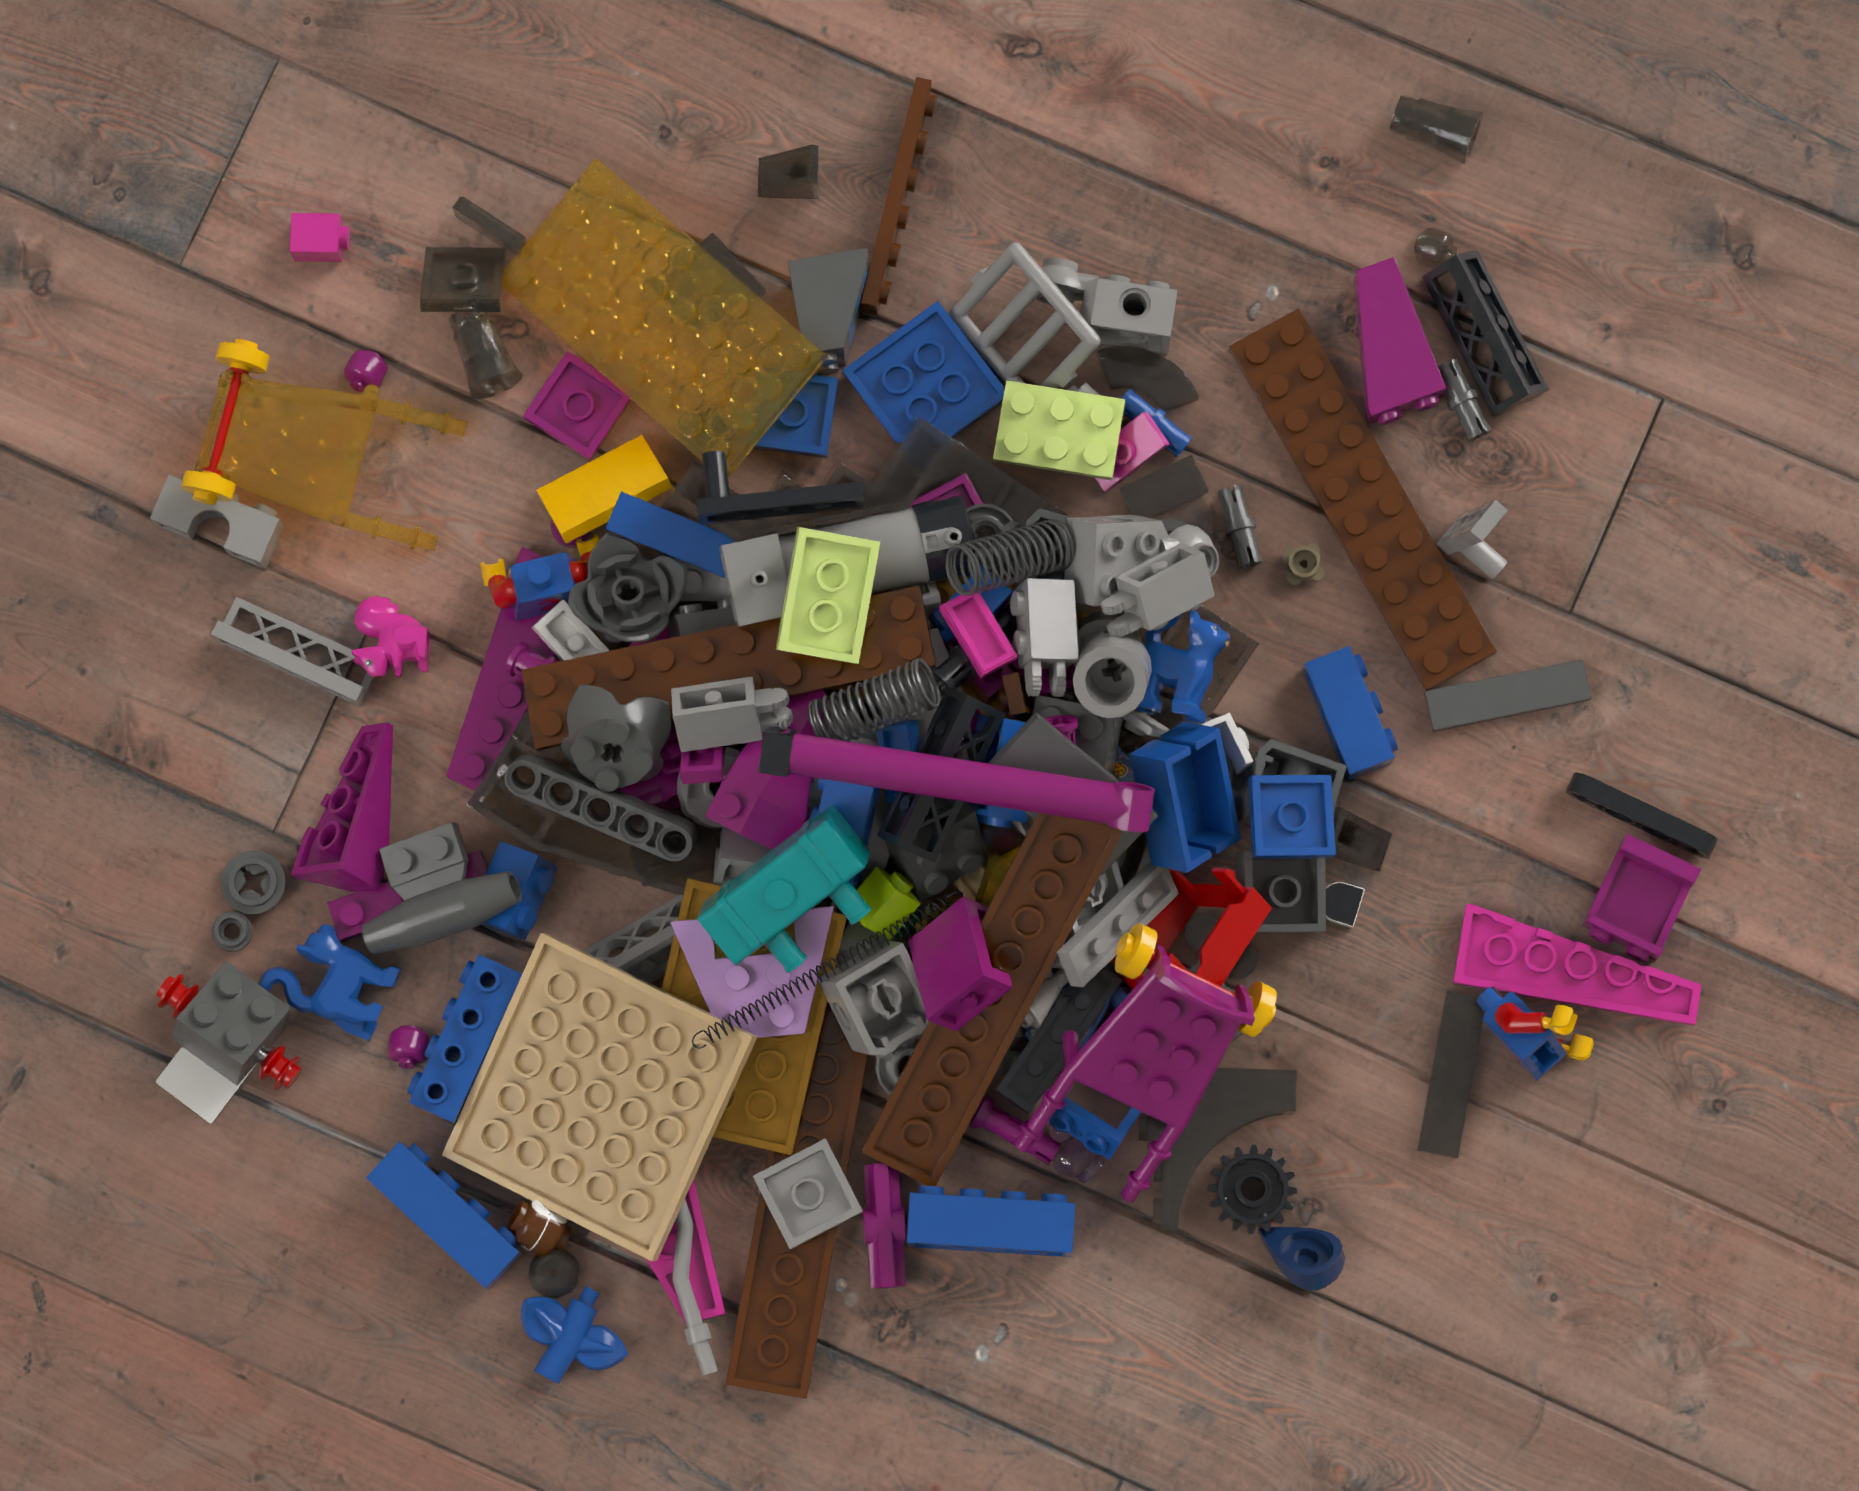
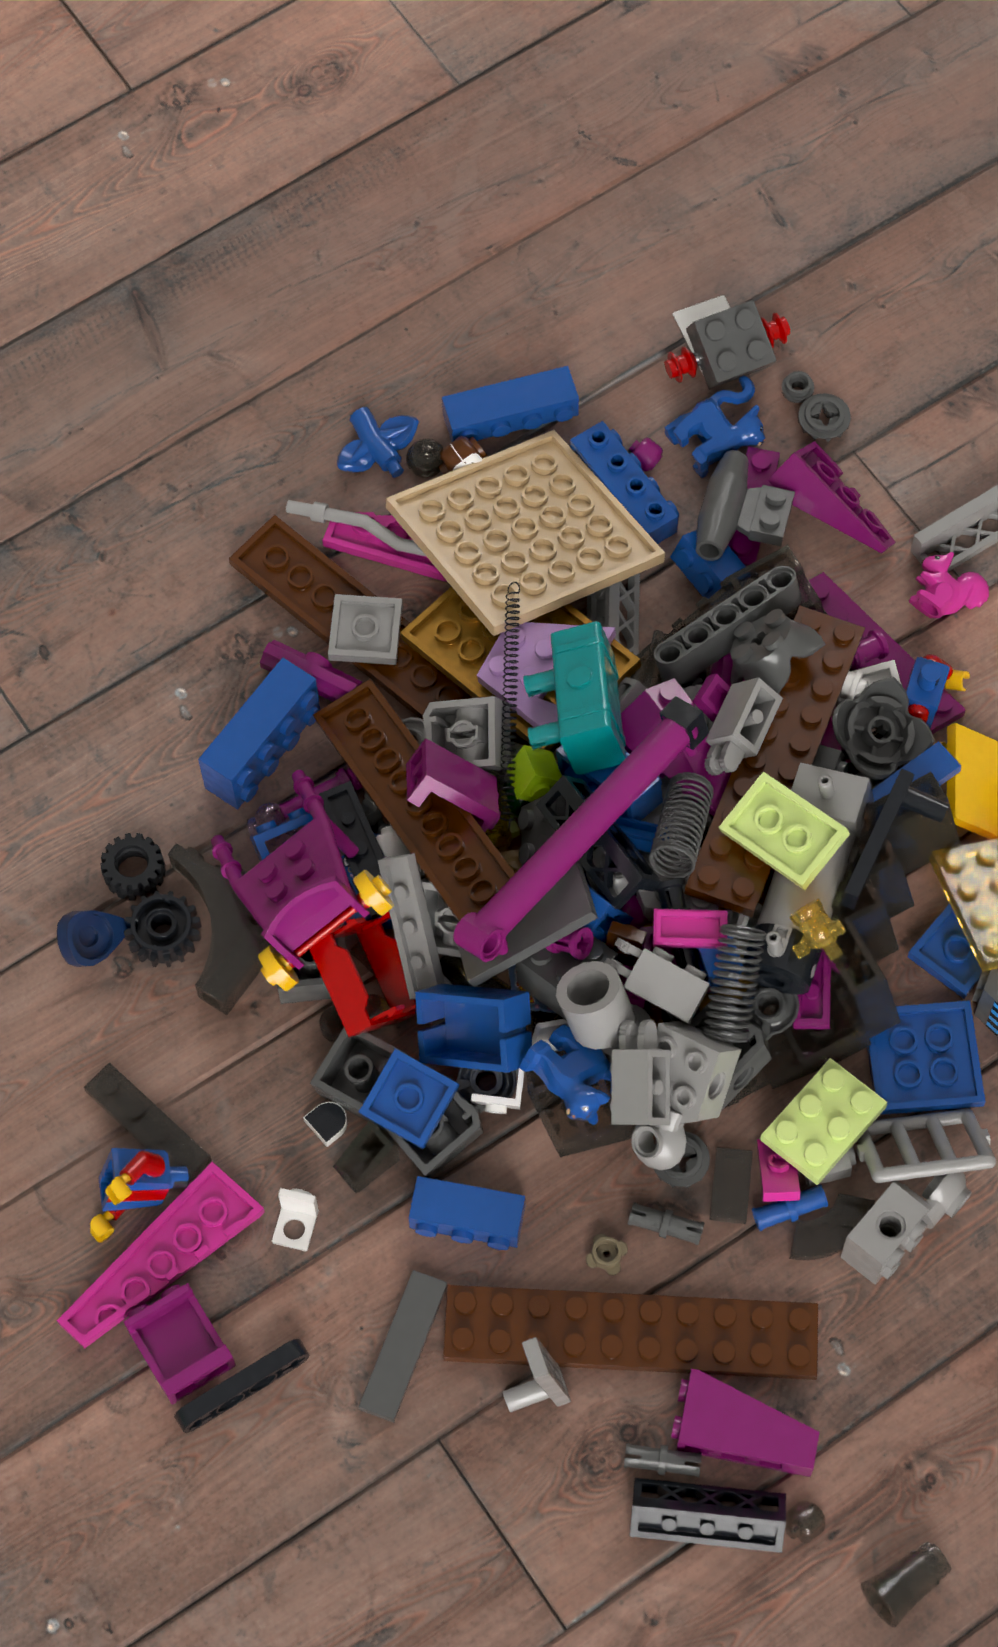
camera: 120 degrees right, 15 degrees down
(591, 643) = (853, 685): none -> white plate
(911, 507) = (817, 929): none -> clear yellow piece
(1210, 1240) = (128, 848): none -> black tyre
(1440, 870) = (299, 1206): none -> white bracket

